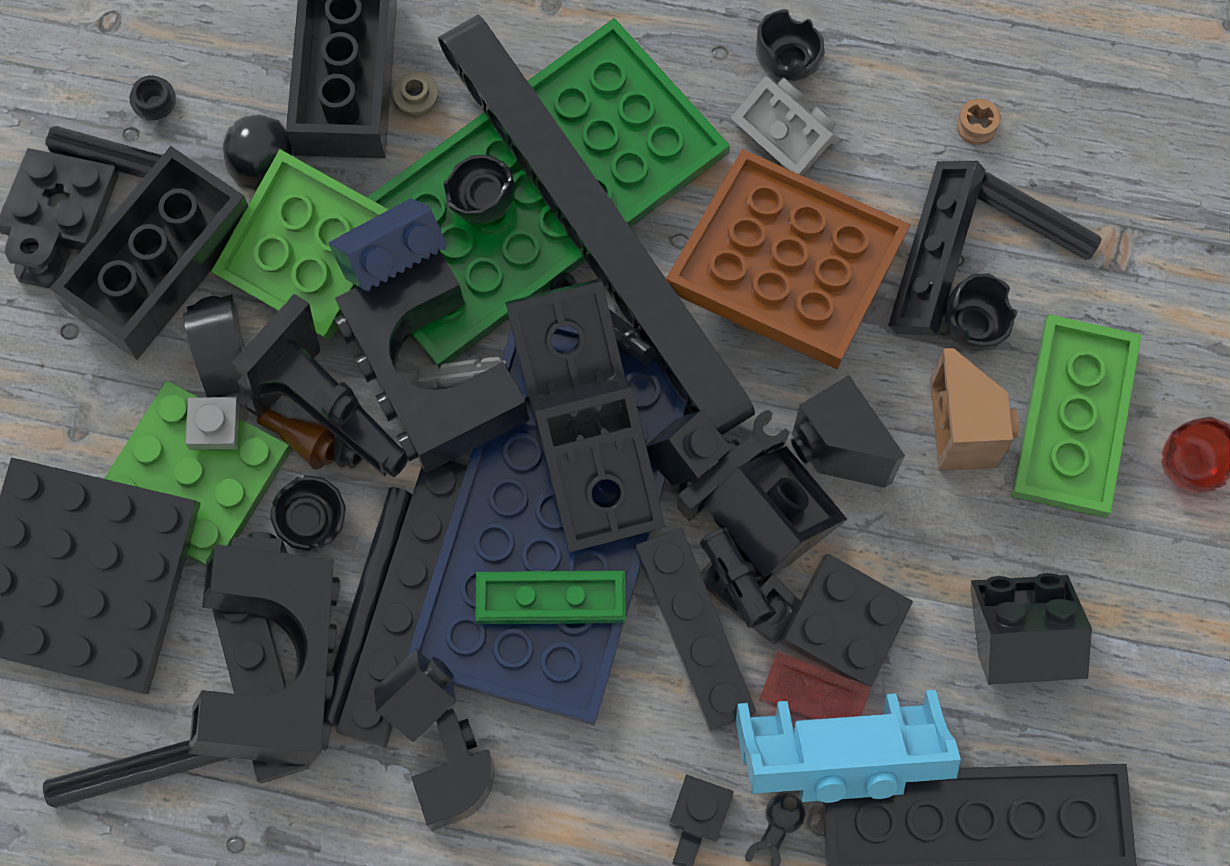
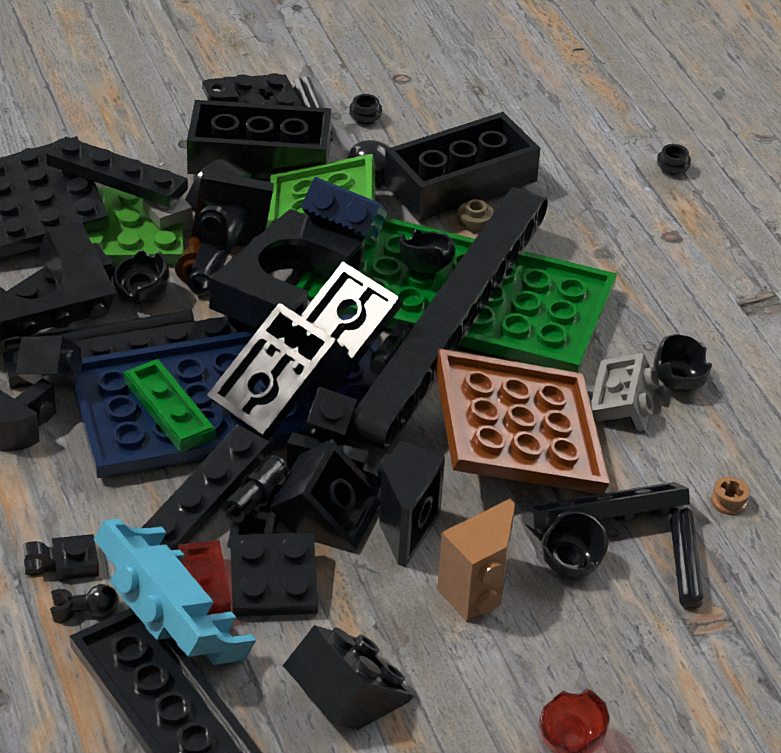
camera: 55 degrees right, 30 degrees down
(130, 452) = (117, 171): none -> black plate
(1076, 416) = (544, 641): bright green plate -> none

